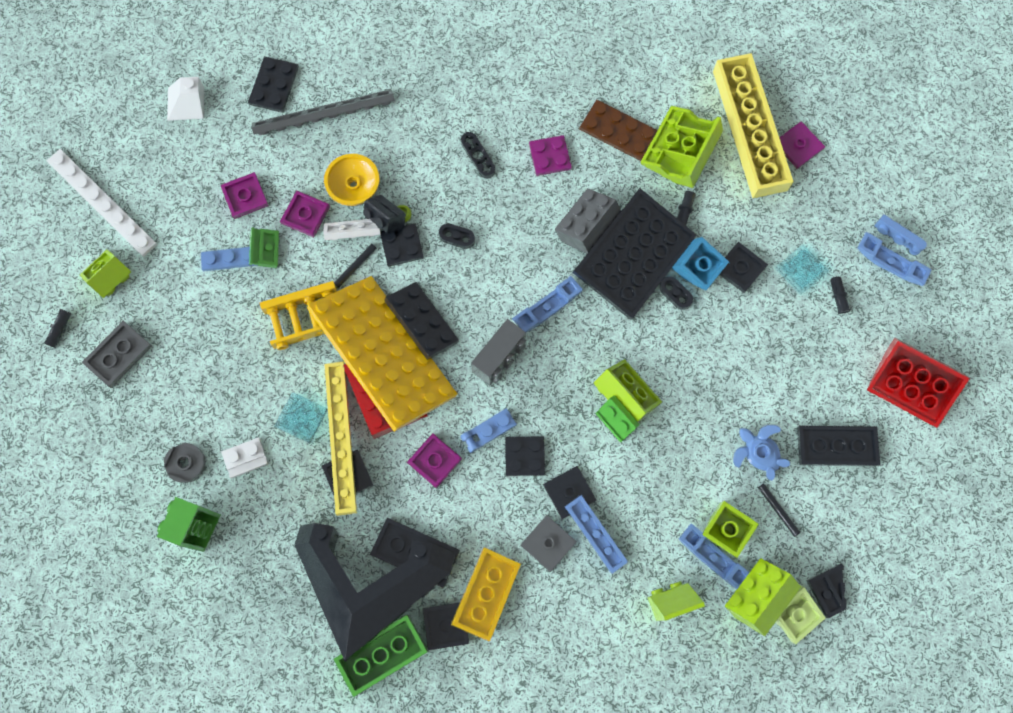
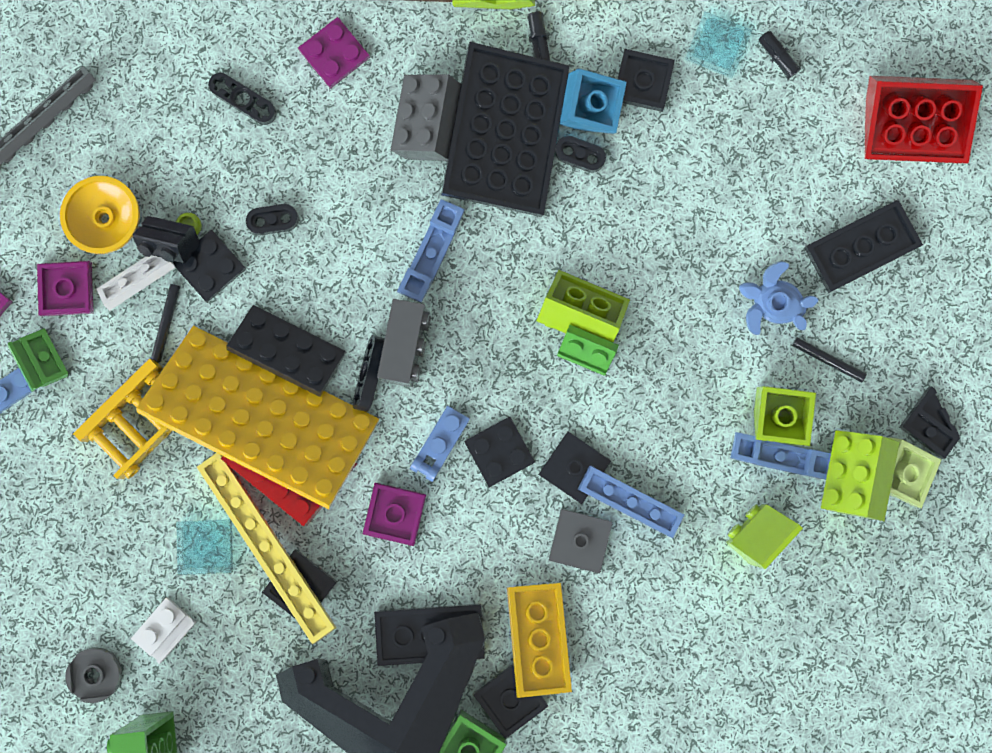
camera: 25 degrees left, 10 degrees up
(464, 363) = (368, 374): none -> black beam

